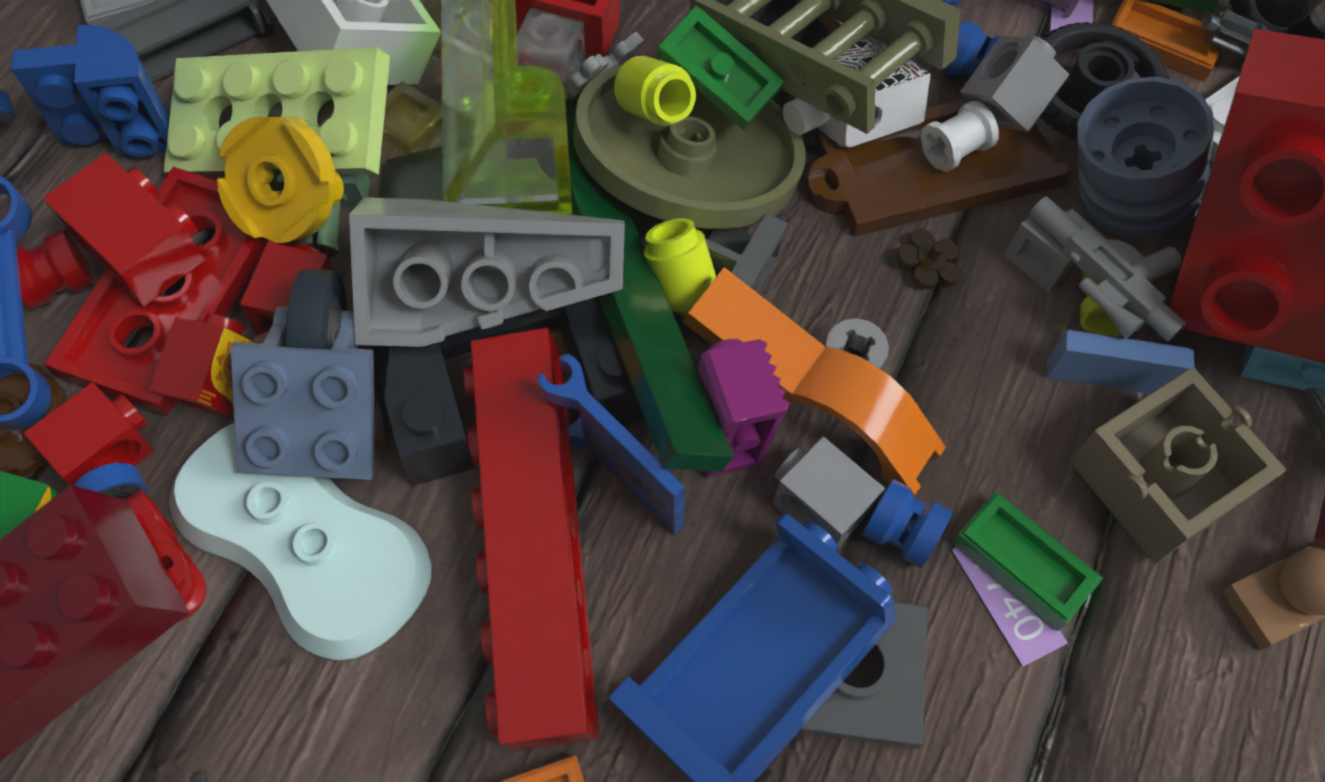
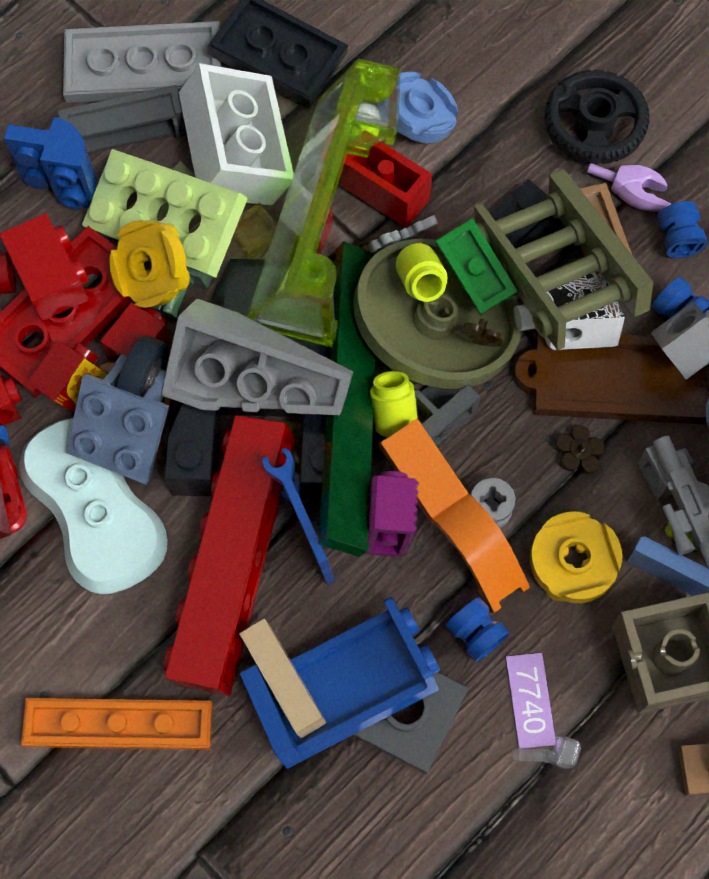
camera: 25 degrees right, 5 degrees up
(552, 44) = (365, 215): clear brick -> none
(673, 683) = (283, 678): none -> tan piece
(753, 149) = (479, 334): none -> dark brown plant
(826, 490) = (431, 591): light grey brick -> none
(967, 131) = (637, 366): white bush -> none
(976, 421) = (588, 536): none -> yellow plate
(1027, 561) = (551, 681): green tile -> none
(1090, 652) = (564, 755): none -> clear hand

